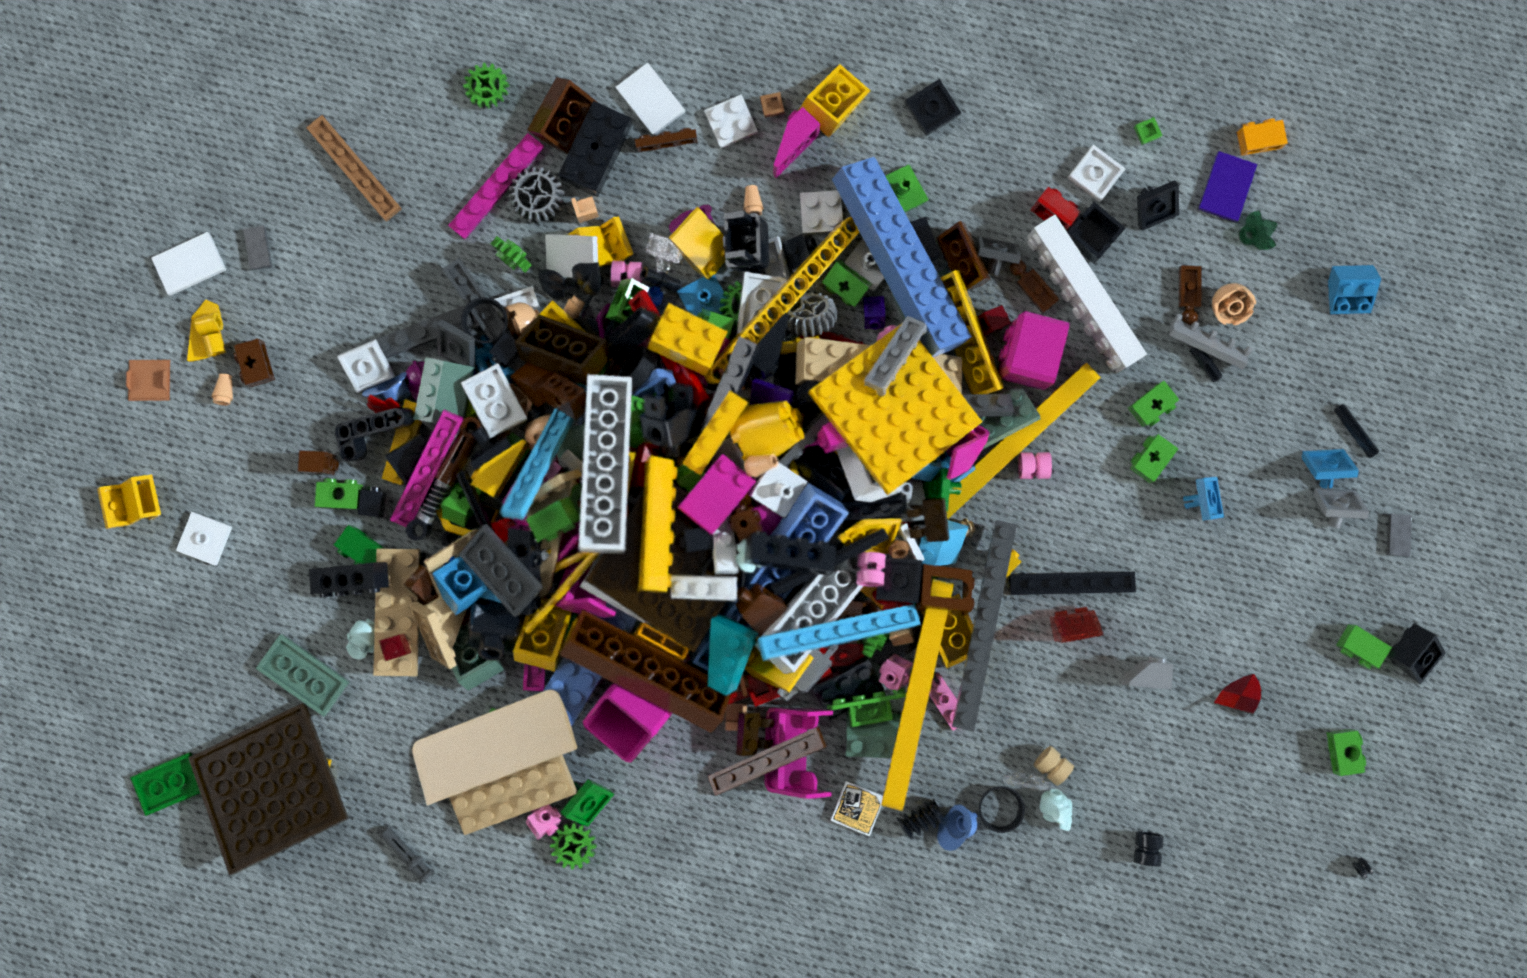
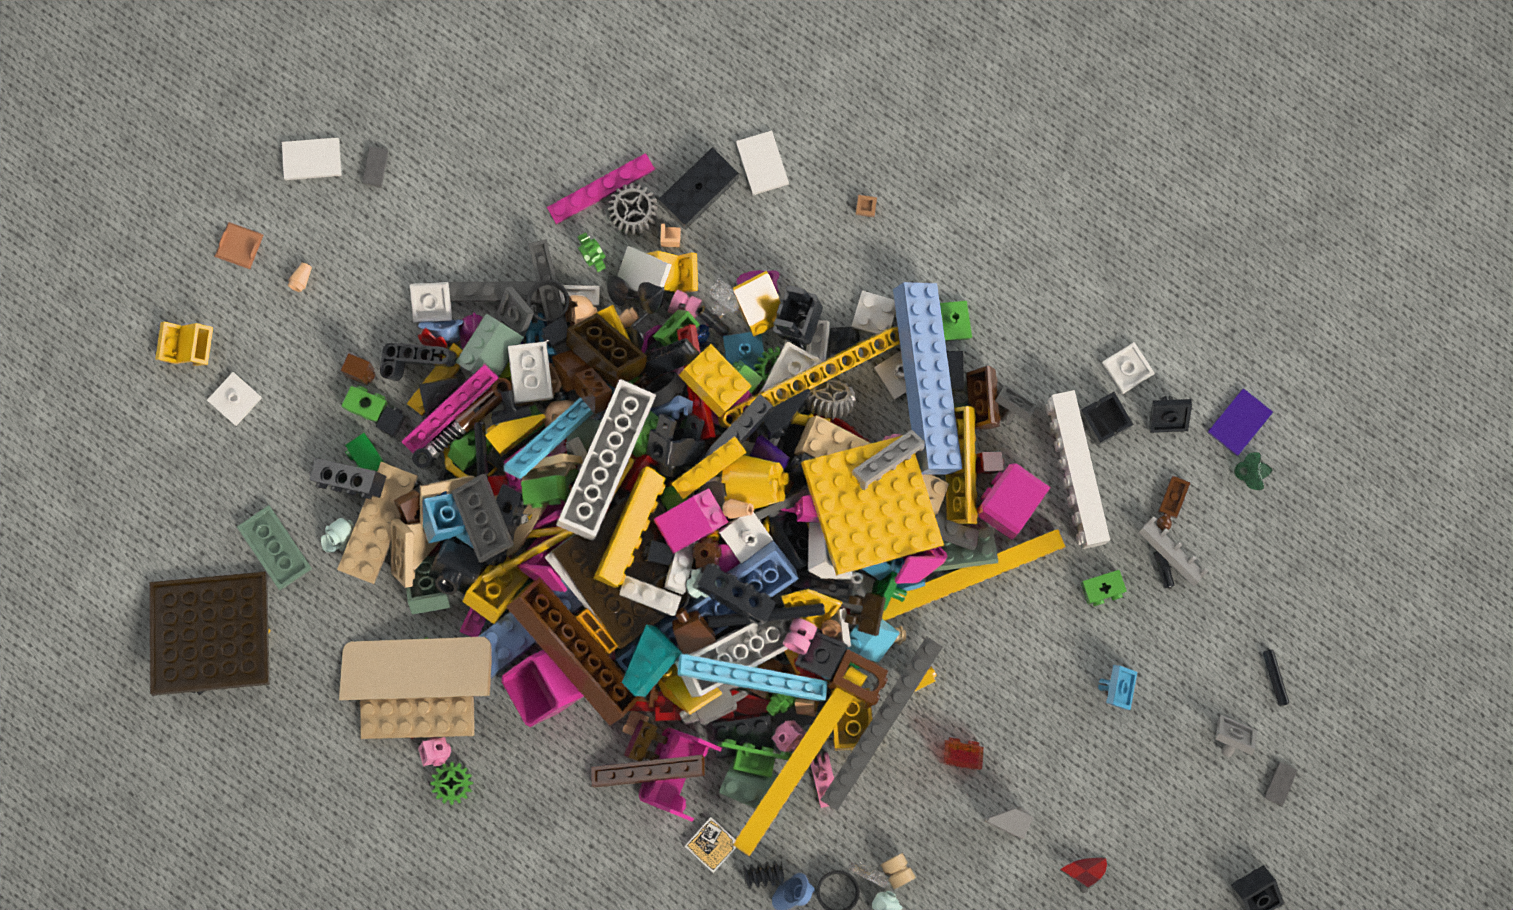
camera: 20 degrees right, 5 degrees down
(165, 784) = (121, 598): green tile -> none
(205, 333) = (303, 223): yellow panel -> none
(261, 370) = (338, 274): reddish brown brick -> none
(354, 168) = (484, 129): medium nougat plate -> none
(395, 647) = (366, 551): dark red brick -> none
(411, 865) = (307, 746): dark grey pin -> none
(490, 78) = (619, 104): bright green gear -> none
(561, 115) = (680, 148): reddish brown slope -> none
(587, 802) = (478, 749): green tile -> none
(666, 140) = (762, 202): reddish brown plate -> none
(730, 121) = (825, 207): white plate -> none
(752, 200) = (818, 282): light nougat cone -> none
(798, 135) = (878, 240): dark pink slope -> none
(835, 99) = (921, 221): yellow slope -> none
(857, 284) = (881, 389): bright green brick -> none
(874, 312) = (888, 417): dark purple bracket -> none
(932, 107) = (1005, 259): black plate -> none
(1034, 286) = (1036, 446): reddish brown plate -> none
(1034, 465) = (979, 602): bright pink wheel -> none
(1052, 204) = (1078, 380): red slope -> none
(1072, 583) = (974, 717): black plate -> none
(1148, 131) = (1187, 348): bright green plate -> none
(1163, 453) = (1094, 626): bright green brick -> none
(1233, 304) = (1205, 525): light nougat cylinder -> none
(1262, 137) = (1285, 389): light orange brick -> none
(1329, 465) = (1238, 698): dark azure tile -> none
(1353, 289) = (1317, 552): dark azure slope -> none
(1363, 646) = (1211, 869): bright green brick -> none

